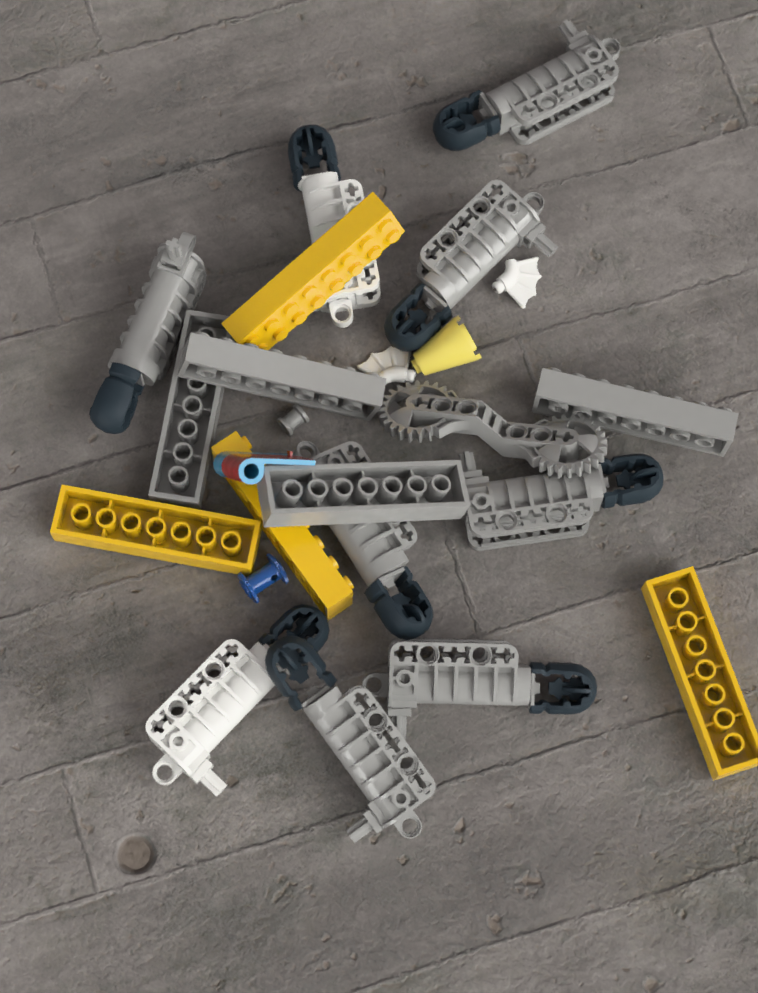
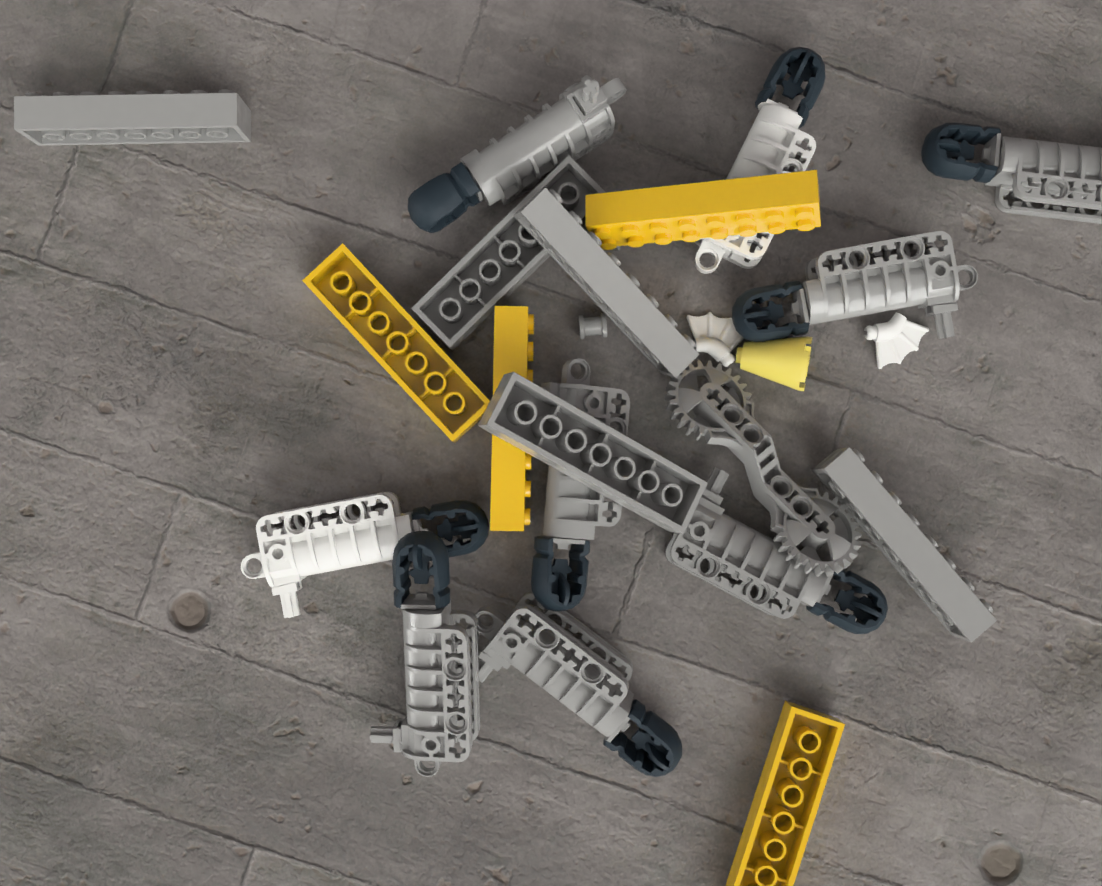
camera: 40 degrees right, 15 degrees up
(249, 466) = (510, 352): dark azure door -> none
(263, 578) = (461, 453): blue hose -> none

